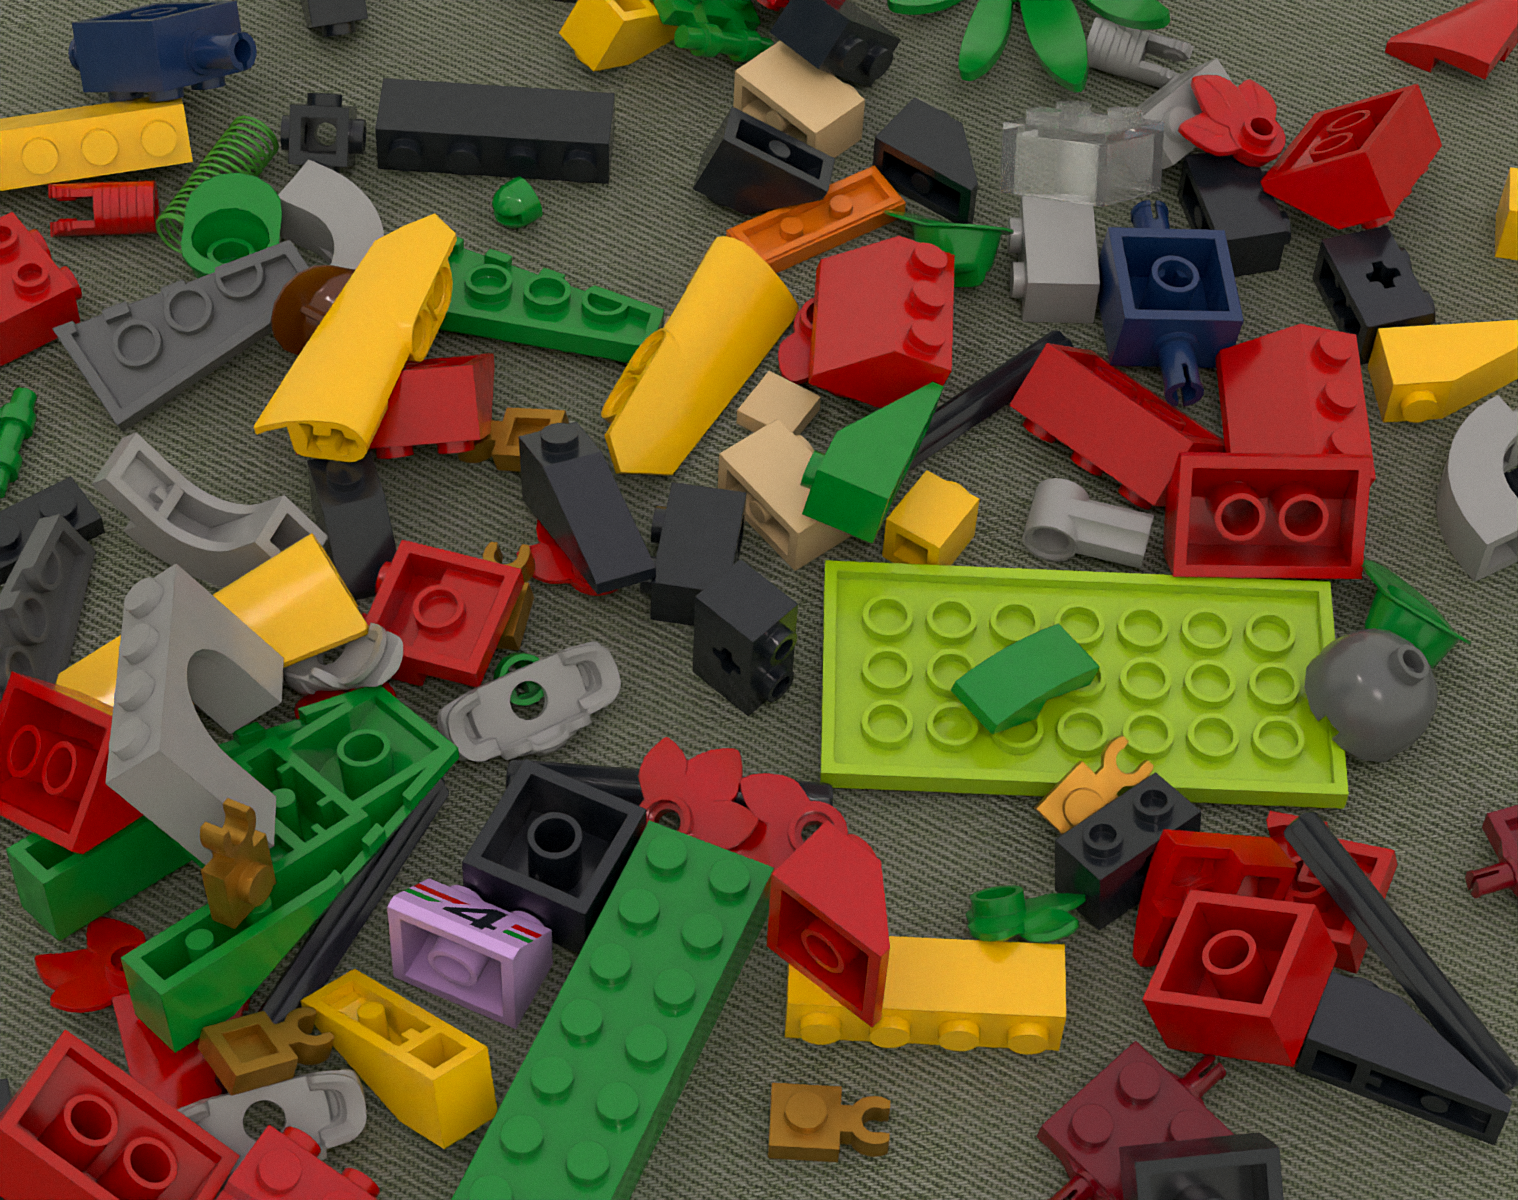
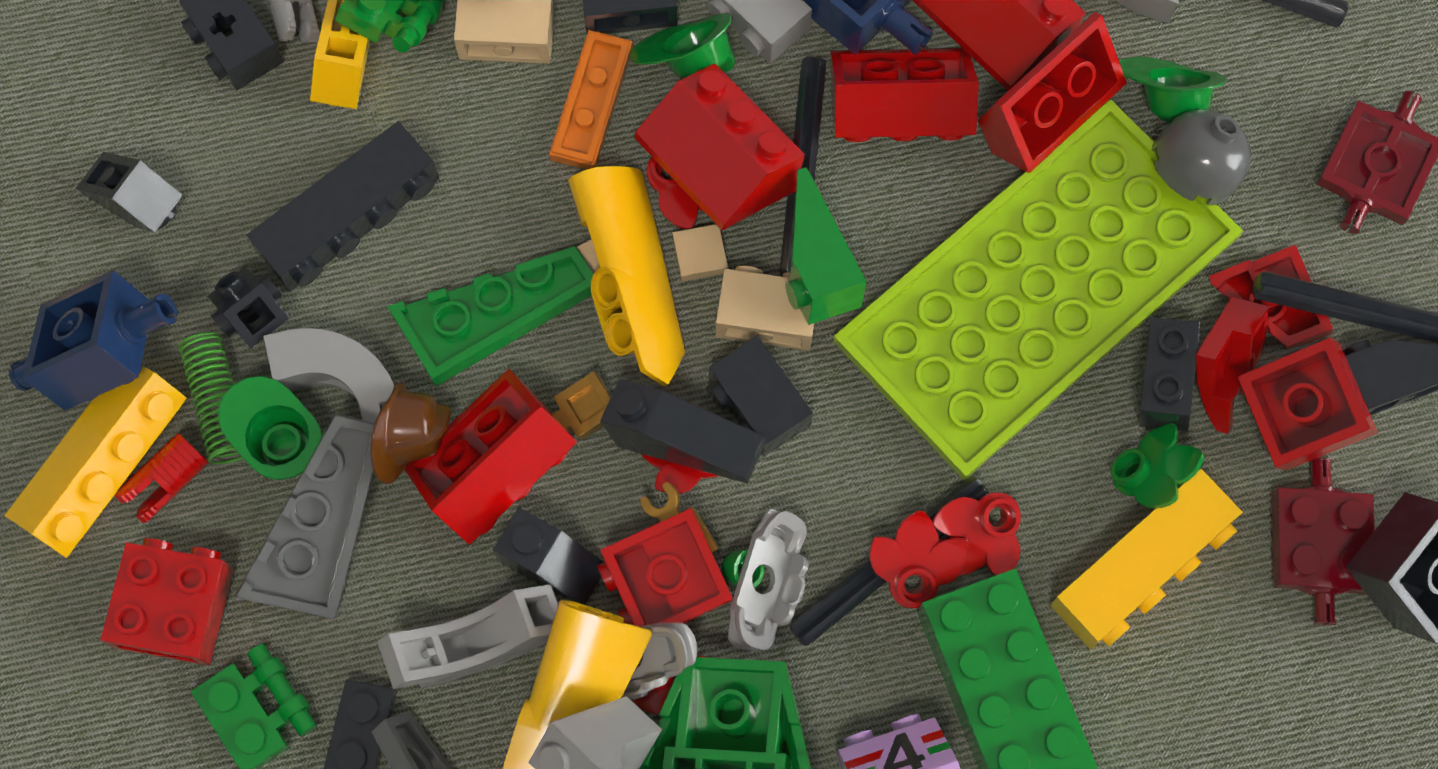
camera: 40 degrees left, 20 degrees up
(356, 354) = (454, 445): yellow panel -> none
(516, 204) = (408, 247): green hinge -> none
(553, 851) = (886, 667): black brick -> none
(745, 638) = (854, 433): black brick -> none
(760, 167) = (534, 95): black slope -> none
(812, 1123) = (1159, 688): pearl gold plate -> none
(833, 919) = (1104, 578): red slope -> none
(931, 523) = (873, 252): yellow brick -> none
(1021, 677) = (1023, 318): green slope -> none
(1068, 523) = (937, 185): light grey piece -> none
(1086, 792) = (1120, 362): pearl gold plate -> none

